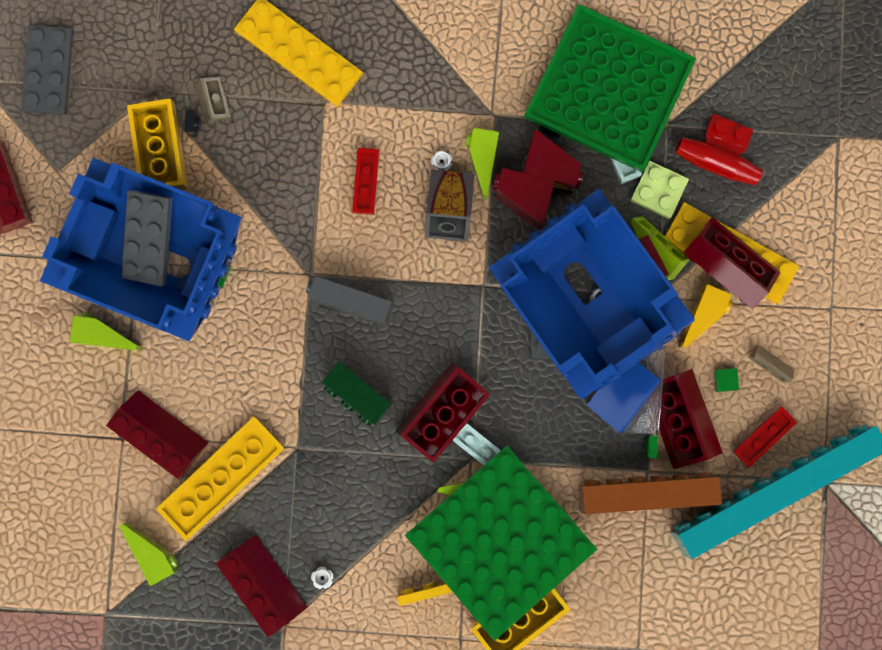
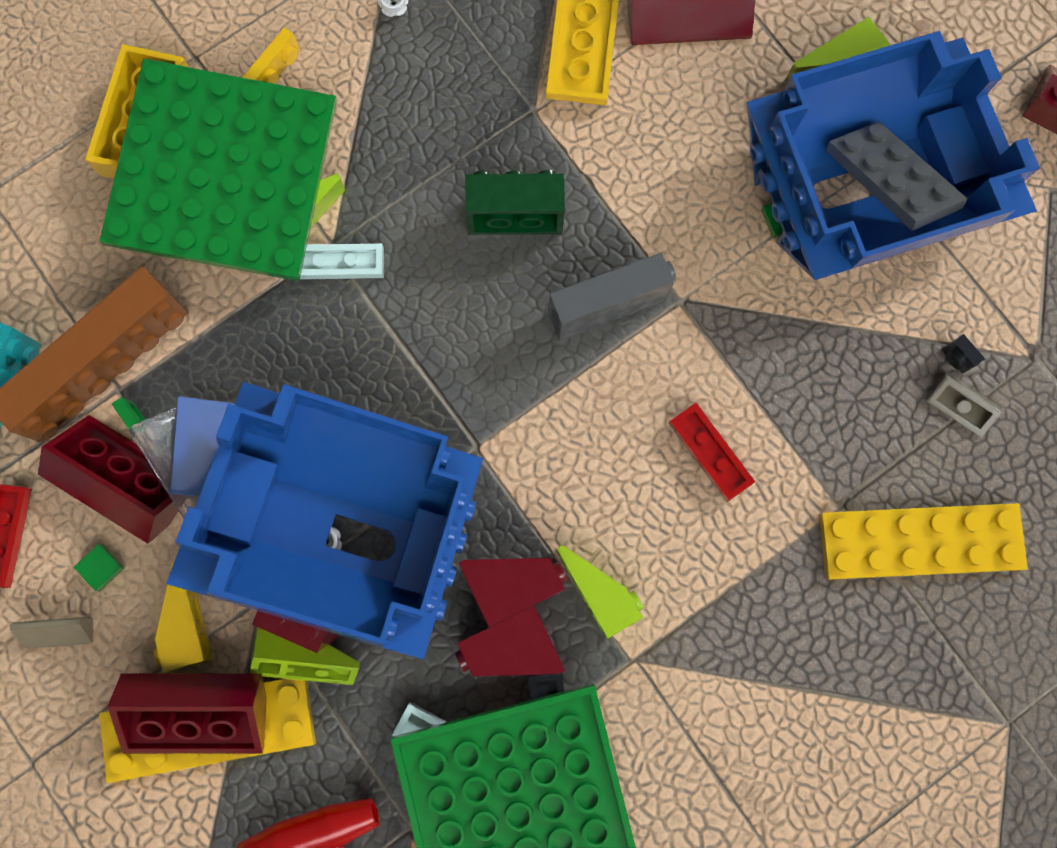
camera: 140 degrees right, 5 degrees down
(158, 142) = (976, 295): yellow brick -> none
(441, 155) = (641, 558): white plate -> none
(442, 412) = (403, 262): dark red slope -> none
(449, 205) = (593, 503): slope -> none
(659, 190) = (356, 735): yellowish green plate -> none

